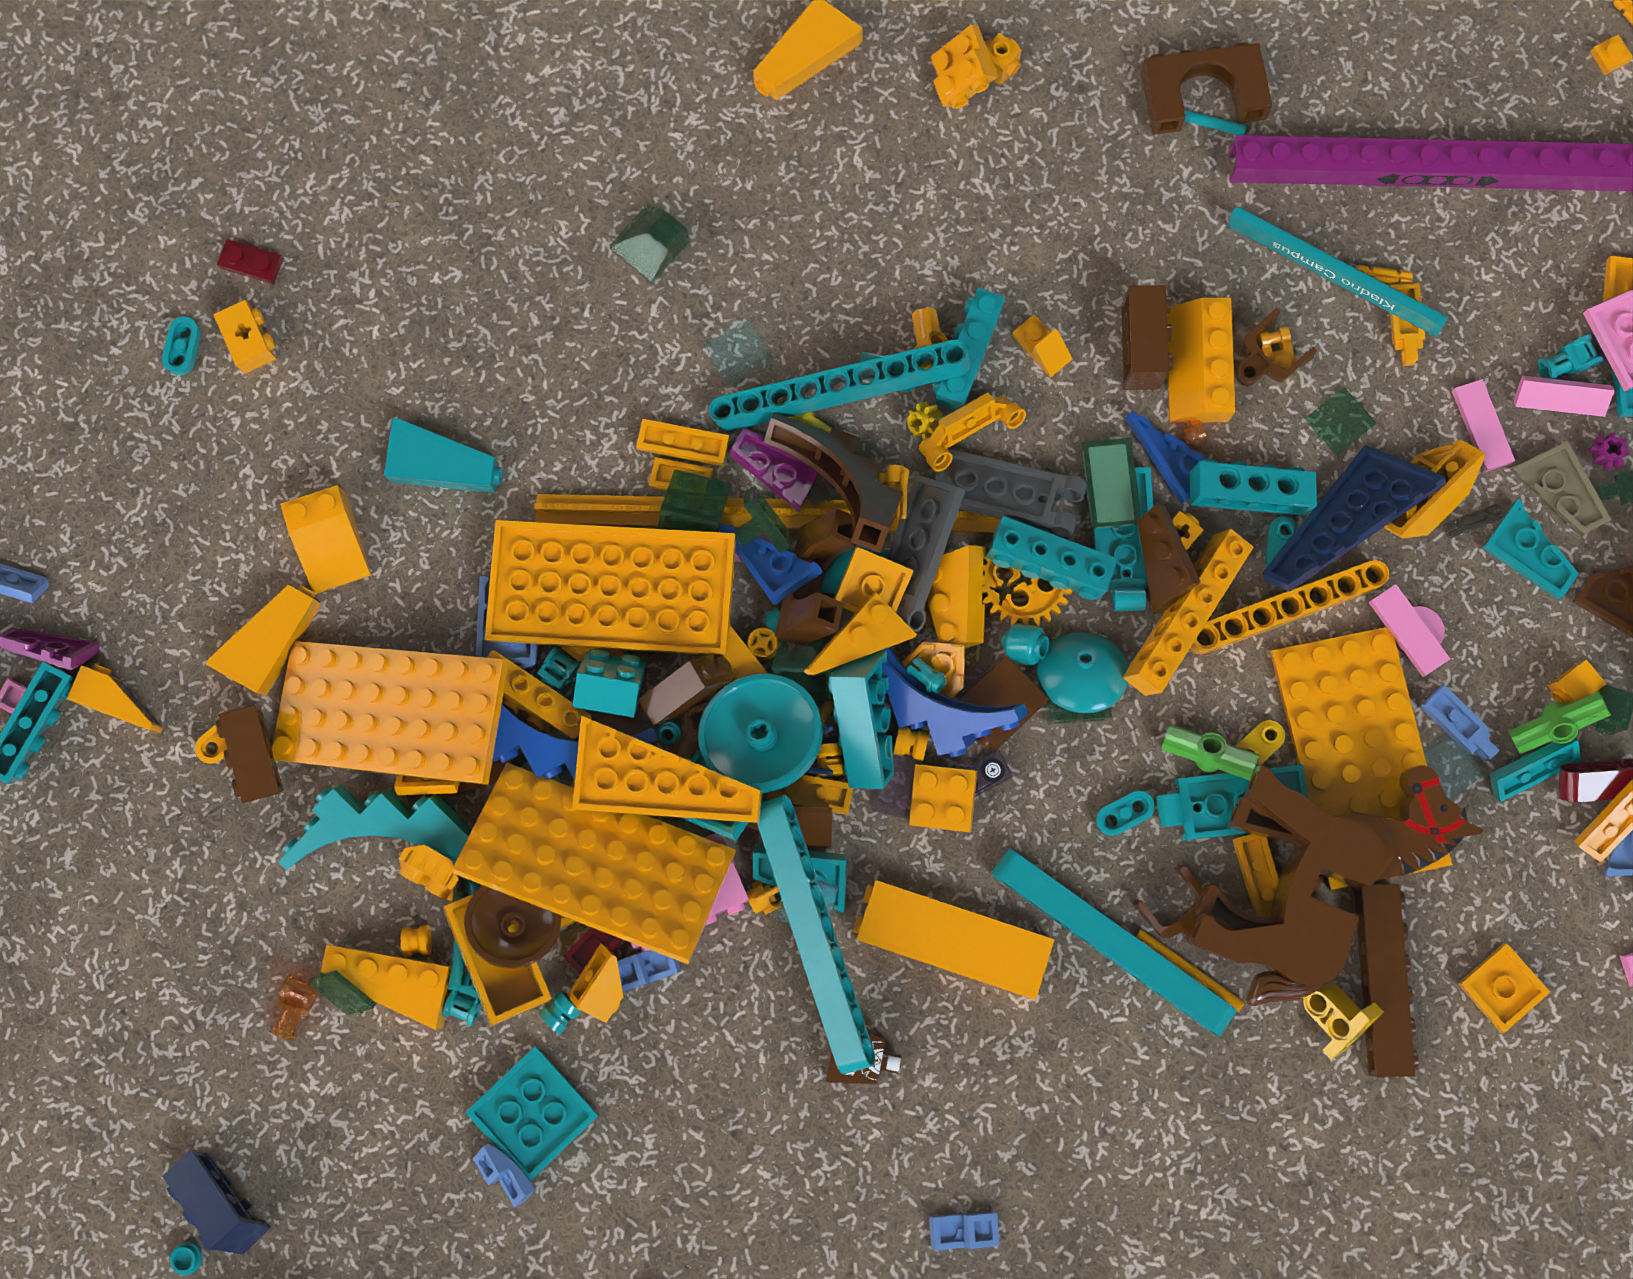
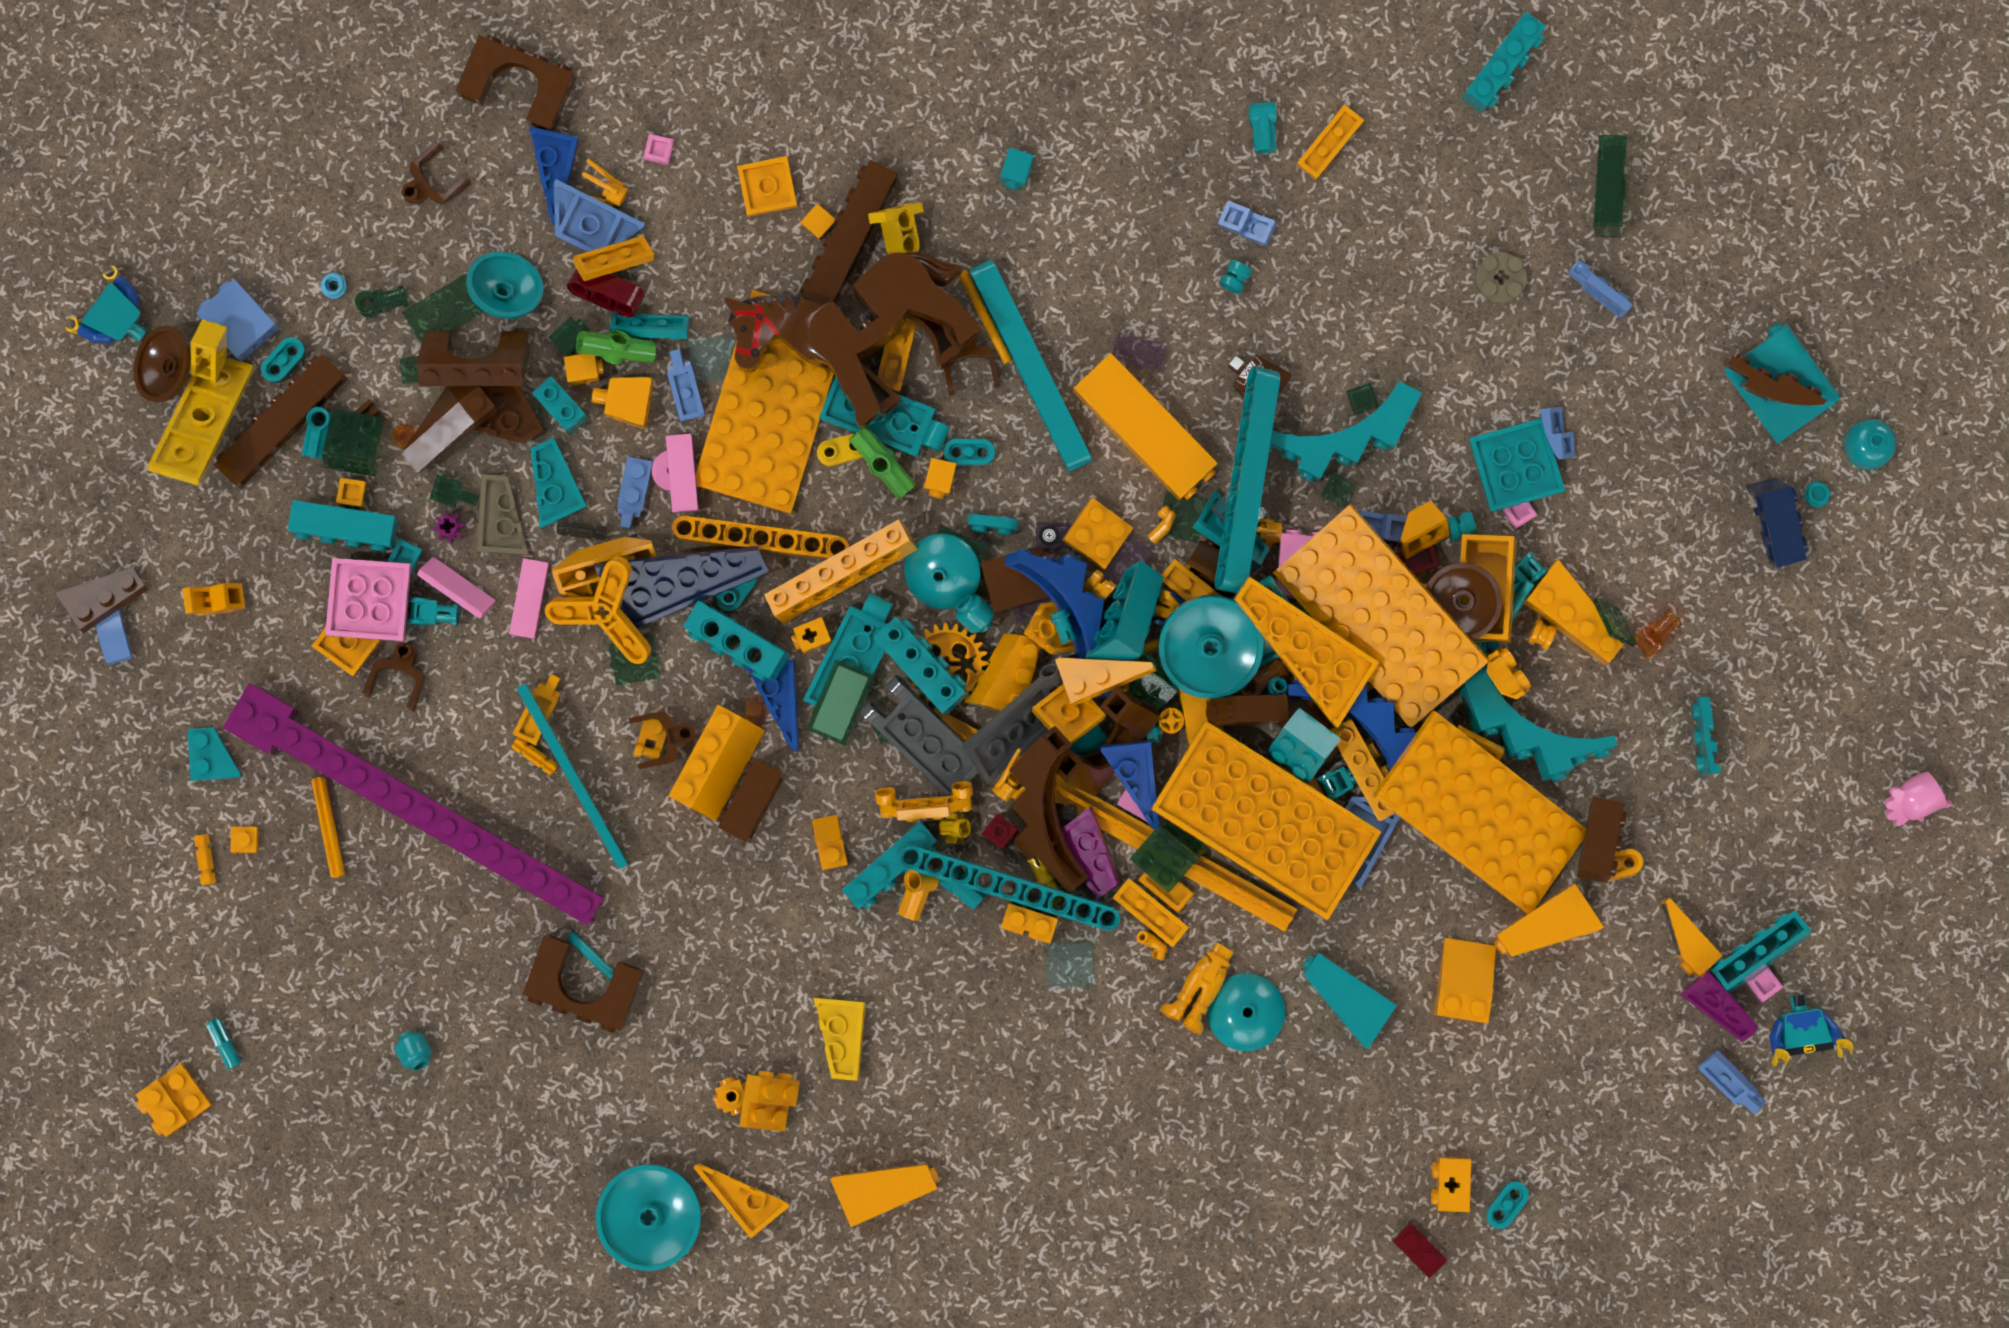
camera: 160 degrees left, 5 degrees up
(181, 909) = (1701, 736): none -> teal wing
(502, 1061) = (1520, 514): none -> bright pink tile
(546, 413) = (1227, 1017): none -> teal dish
(594, 410) = (1208, 975): none -> light orange piece
(651, 242) = (1092, 1093): clear green slope -> none
(668, 415) = (1152, 941): none -> light orange arm
(699, 1077) = (1381, 427): none -> teal arch
(713, 983) = (1337, 490): none -> clear green tile
(737, 1098) = (1362, 399): none -> clear green tile
(764, 521) = (1123, 808): clear green tile -> none
(788, 365) = (1038, 925): none -> light orange piece
(865, 864) = (1186, 516): none -> clear green piece
(876, 844) = (1167, 516): none -> light orange arm
(878, 440) = (999, 831): none -> dark red brick
(925, 173) = (843, 1035): none -> yellow wing
(945, 1161) = (1235, 277): none -> teal wheel
(1004, 1021) = (1139, 352): none -> tile
(1045, 754) = (1003, 525): none -> teal plate
(1140, 768) = (939, 478): none -> light orange brick
(1165, 559) = (836, 619): reddish brown wing -> none
(1249, 1154) = (1016, 169): none -> teal brick
(1407, 446) = (610, 596): none -> light orange piece
(1426, 978) = (818, 221): none -> light orange tile
(1445, 588) = (633, 490): none -> medium blue hinge
(1510, 676) = (626, 400): none -> light orange torso
(1538, 104) = (328, 827): none -> light orange axle
(1566, 296) = (402, 664): none -> reddish brown piece
(1576, 633) = (560, 405): none -> teal brick

